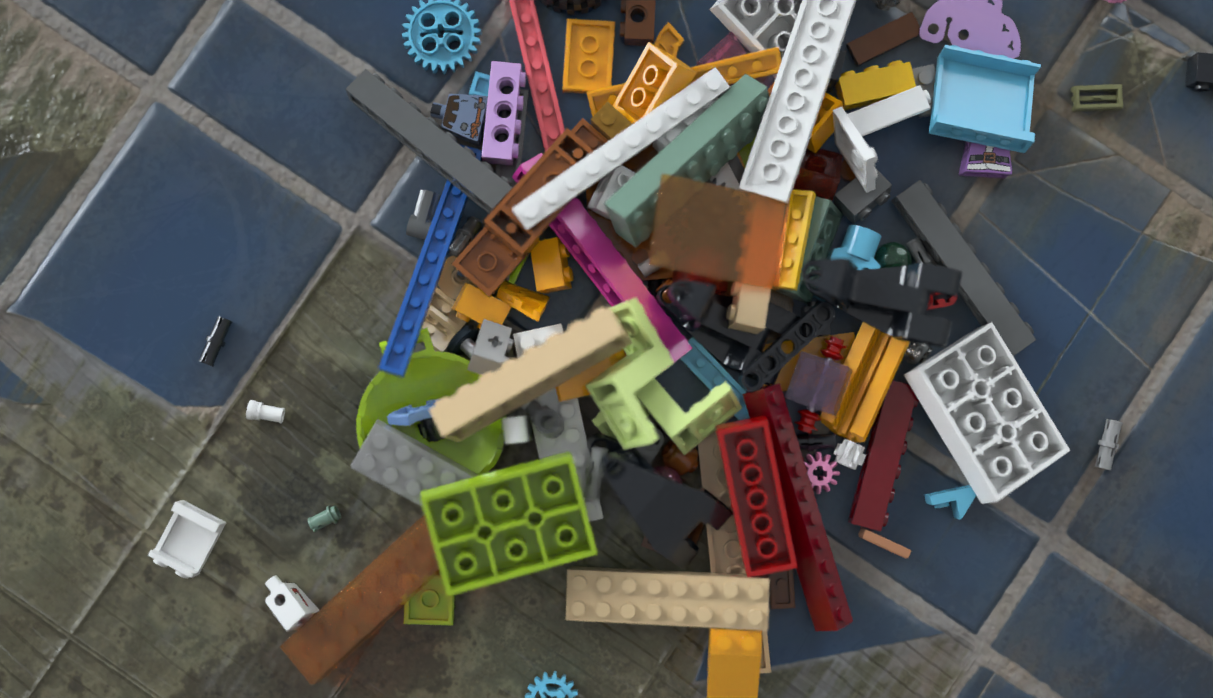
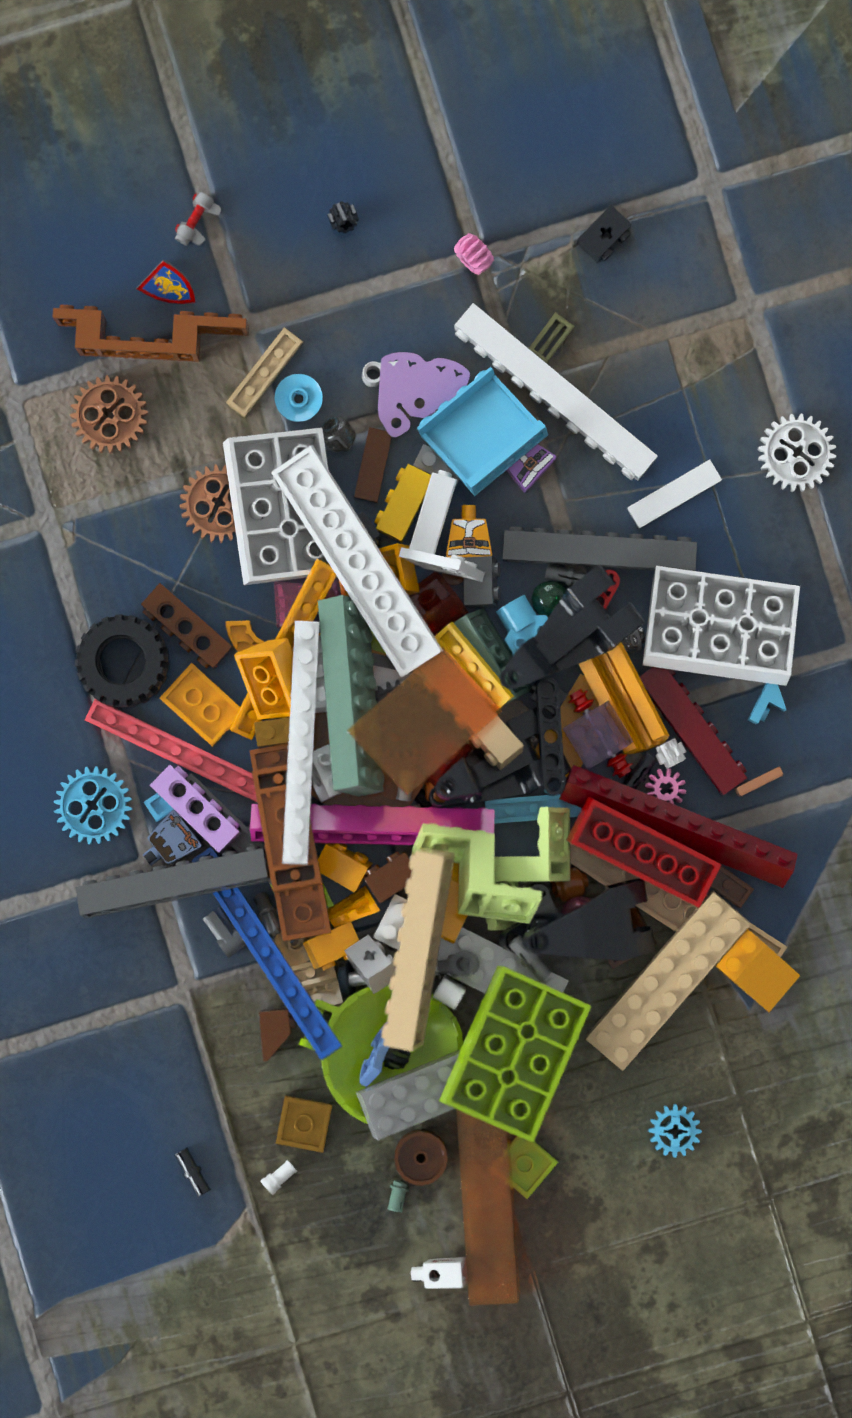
camera: 50 degrees left, 0 degrees up
(187, 539) = (329, 1315): white panel -> none
(323, 398) = (304, 1124): none -> pearl gold tile
(353, 512) = (420, 1142): none -> reddish brown wheel
(375, 314) = (274, 1029): none -> reddish brown slope
(568, 308) = (389, 878): none -> reddish brown brick
(894, 155) = (469, 535): none -> torso
(1055, 292) = (674, 494): none -> white tile
(1059, 134) = (554, 391): none -> white brick
(1108, 444) = (821, 549): light grey pin -> none
(1192, 362) = (809, 435): none -> white gear

